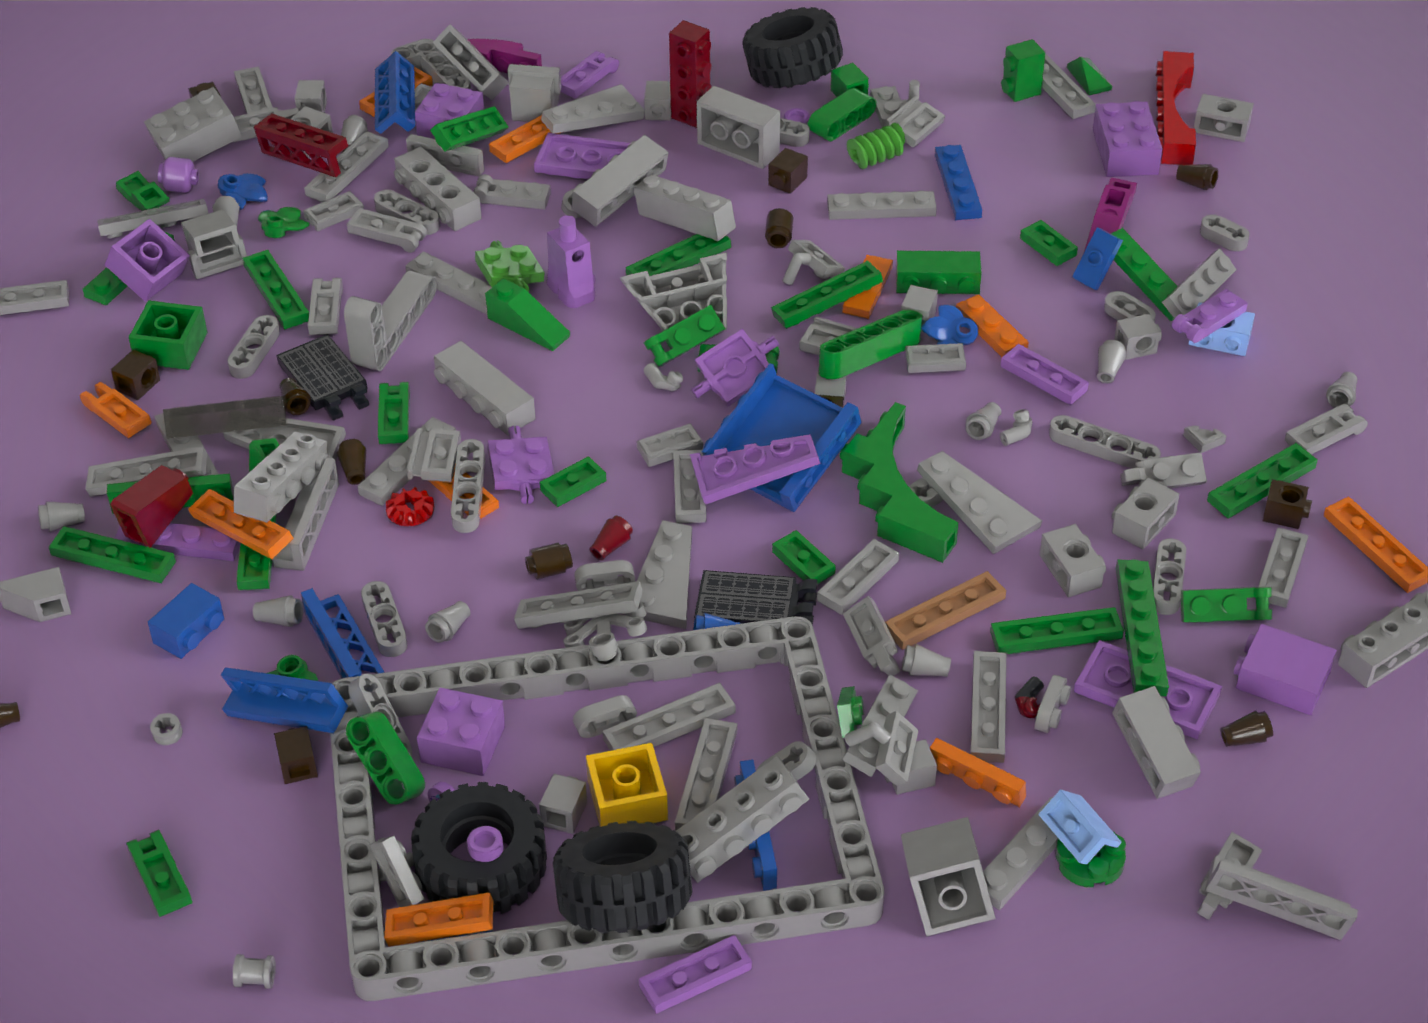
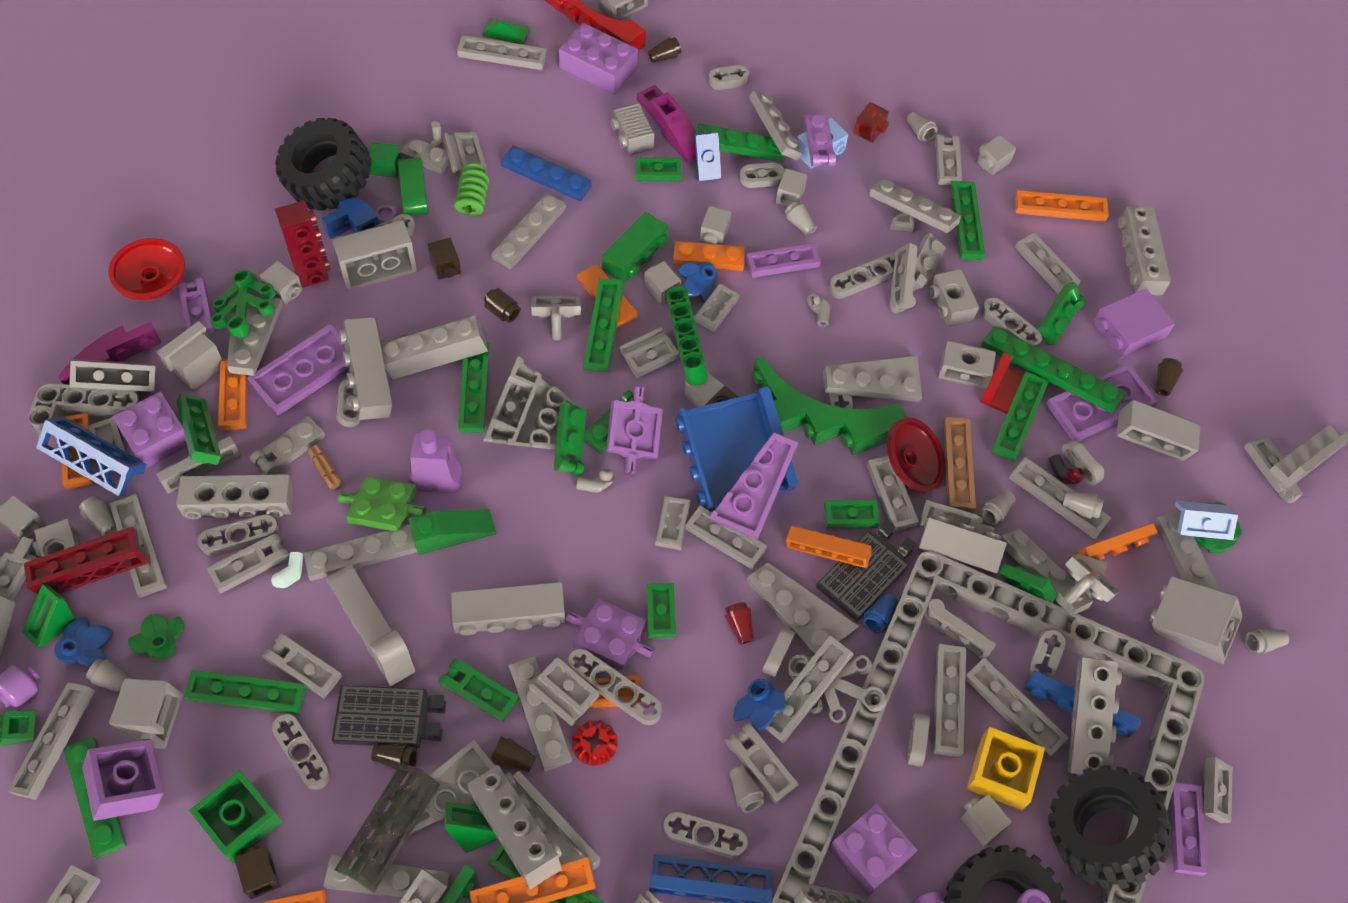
camera: 60 degrees left, 15 degrees up
(247, 158) = (48, 617): none -> green slope
(333, 211) = (179, 609): light grey tile -> none
(400, 256) = (291, 573): none -> light aqua arm
(483, 621) = (762, 763): none -> light grey plate
(513, 221) = (324, 467): none -> medium nougat axle
(547, 586) = (760, 704): none -> blue plate
(548, 560) = (735, 679): dark brown brick -> none
(588, 26) = (146, 269): none -> red dish
(636, 81) = (242, 283): none -> green plant
(748, 555) = (829, 546): none -> orange piece
(751, 691) = (958, 629): none -> light grey plate
(761, 980) = (1217, 790): none -> light grey plate
(771, 94) = (352, 215): none -> blue brick
(846, 645) = (962, 543): none -> light grey brick
(925, 551) = (916, 455): none -> dark red dish
(982, 422) = (801, 323): light grey cone -> none
(988, 955) = (1265, 640): none -> light grey cone
(991, 717) = (1084, 503): none -> light grey cone
(1023, 70) = (480, 59): green brick -> none
(1026, 309) = (715, 226): none -> light grey brick
(1073, 202) = (633, 129): none -> light grey brick
(1080, 593) = (1002, 386): none -> red panel
(1118, 459) = (903, 279): none -> light grey plate
(1227, 430) = (915, 205): none -> light grey plate
(1287, 504) = (999, 223): dark brown brick -> none
(1297, 350) = (871, 122): none -> clear red brick
(1377, 461) = (995, 155): none -> light grey brick

